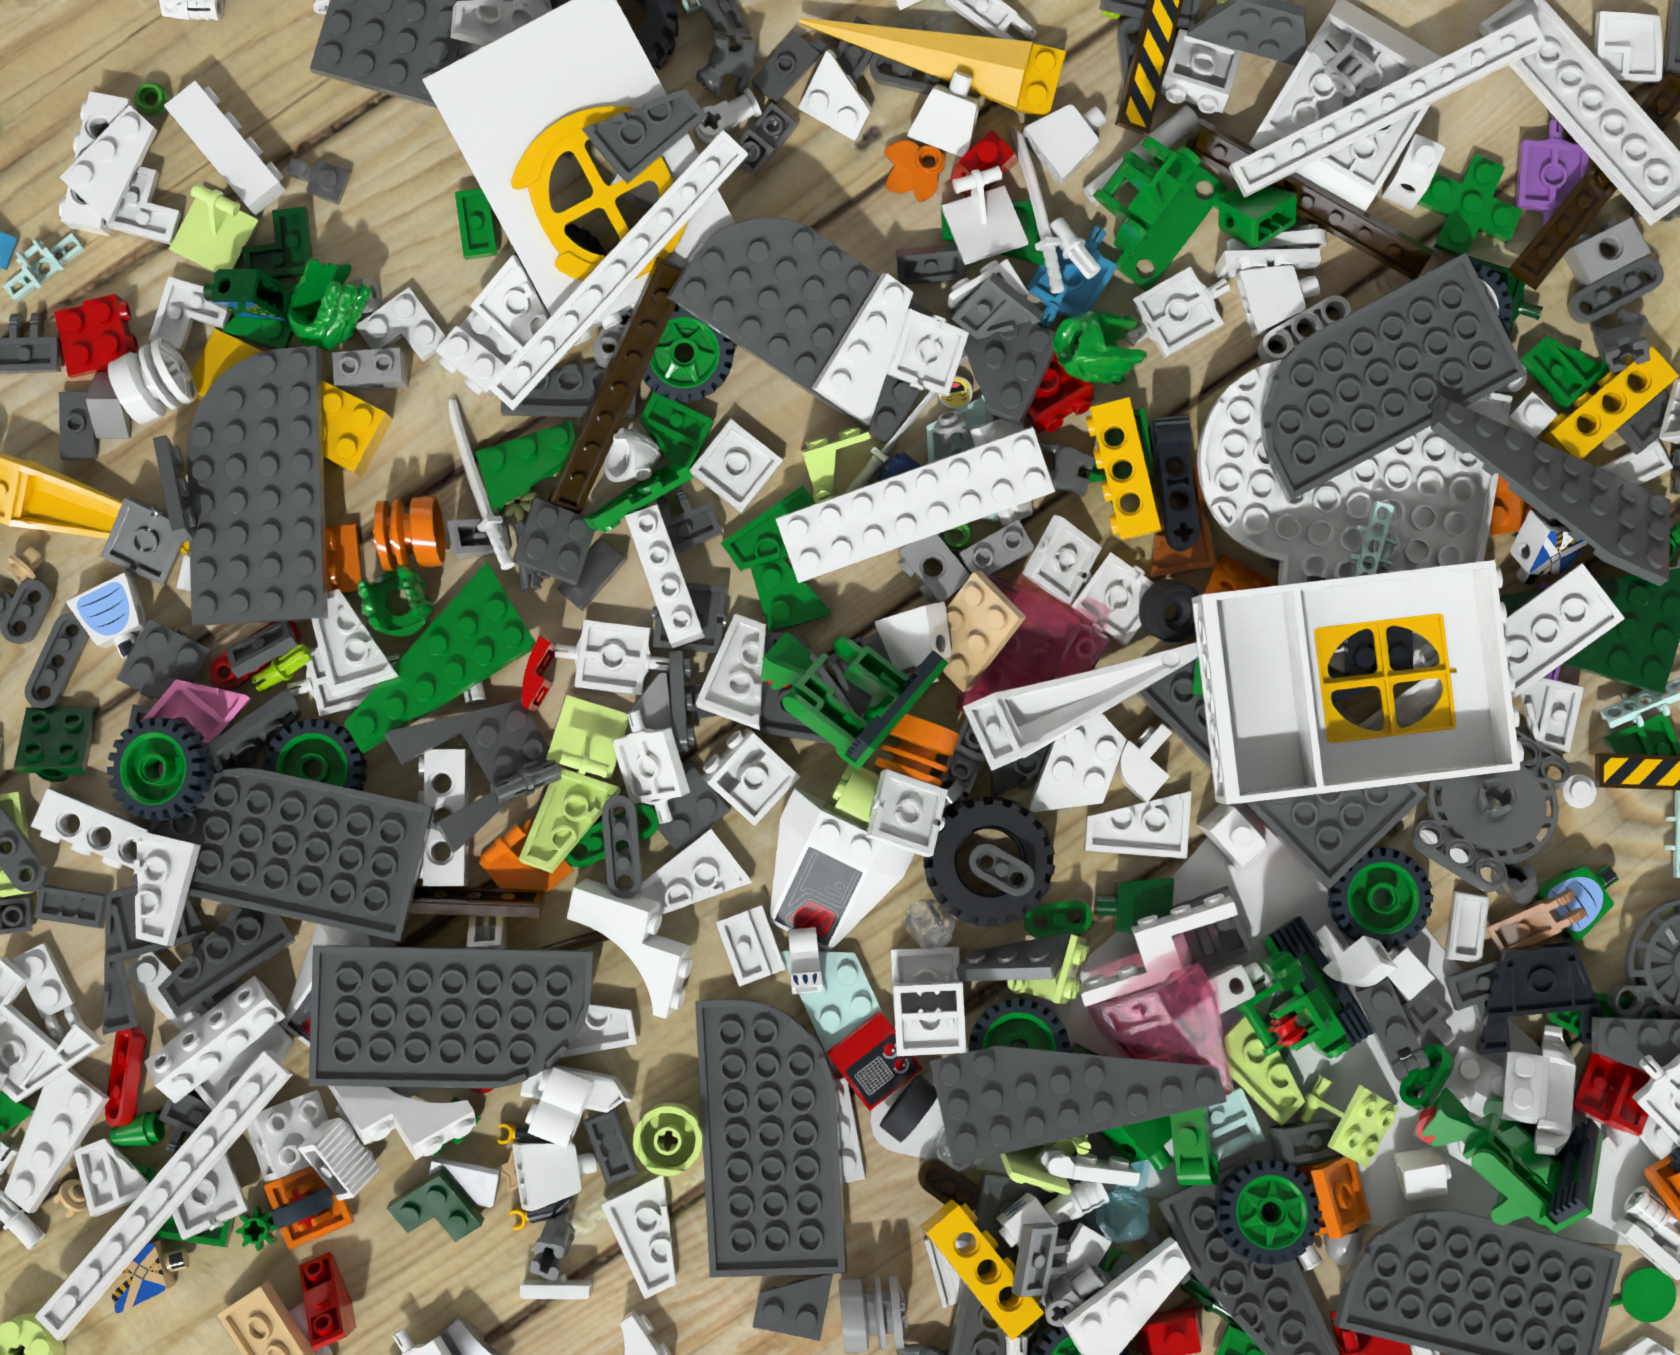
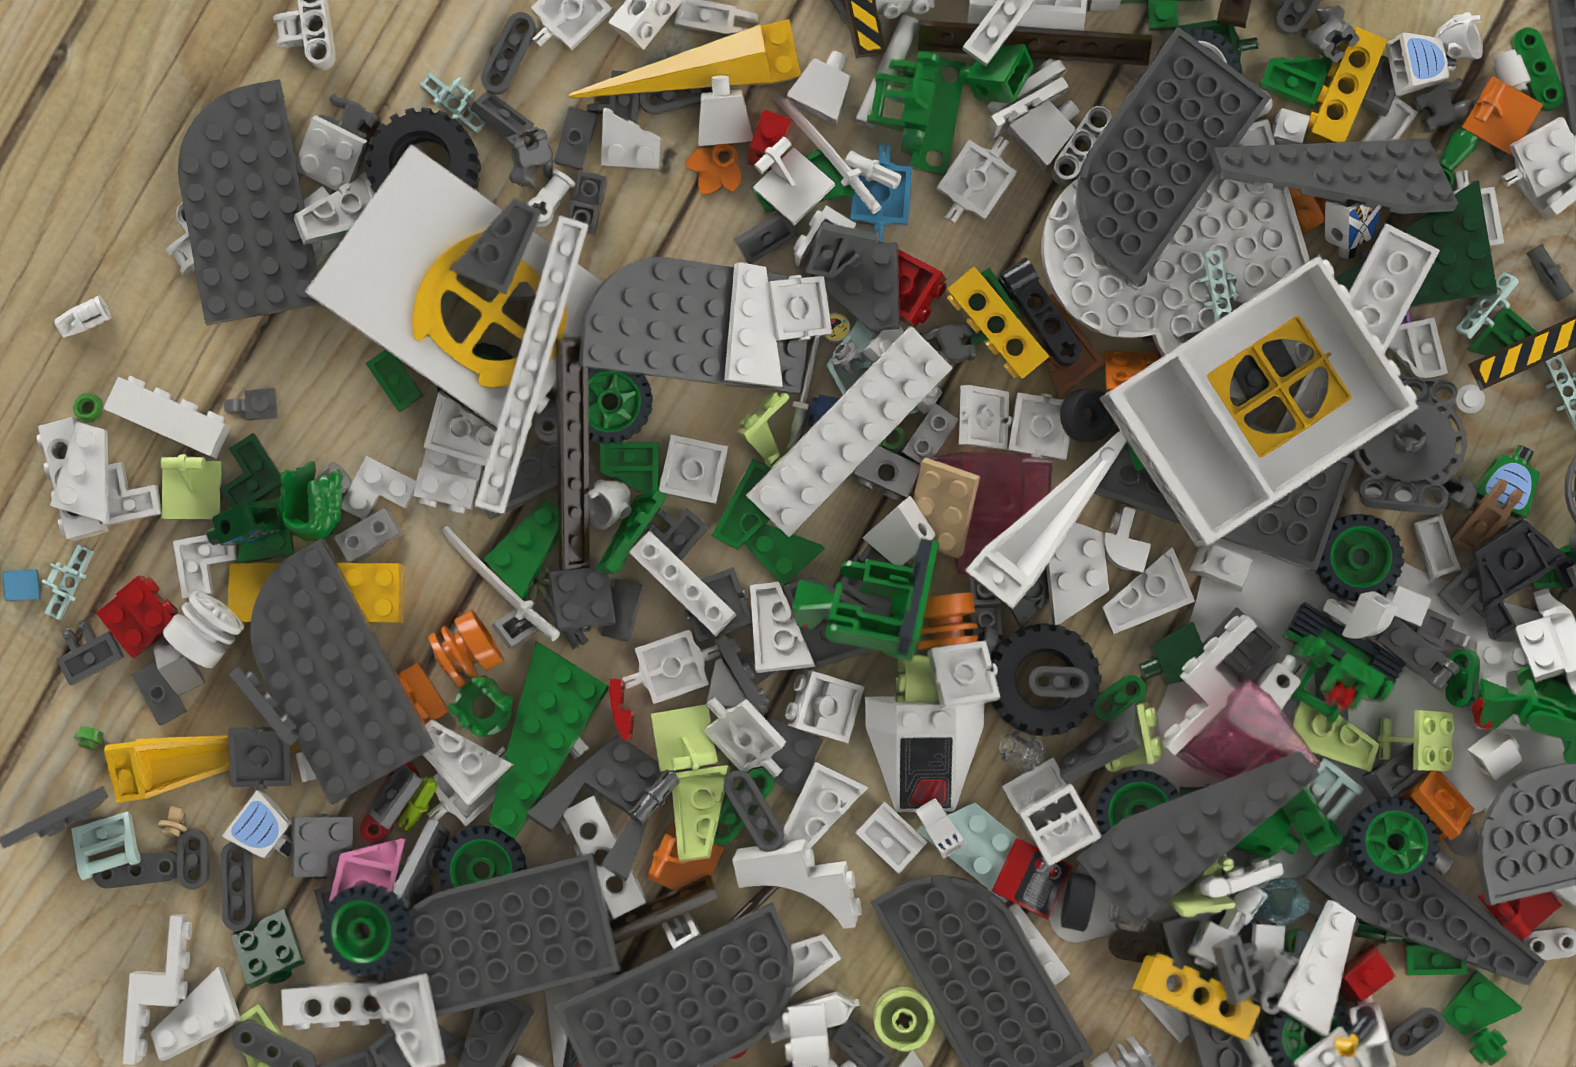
camera: 25 degrees left, 0 degrees up
(1097, 350) = (932, 245): green piece -> none

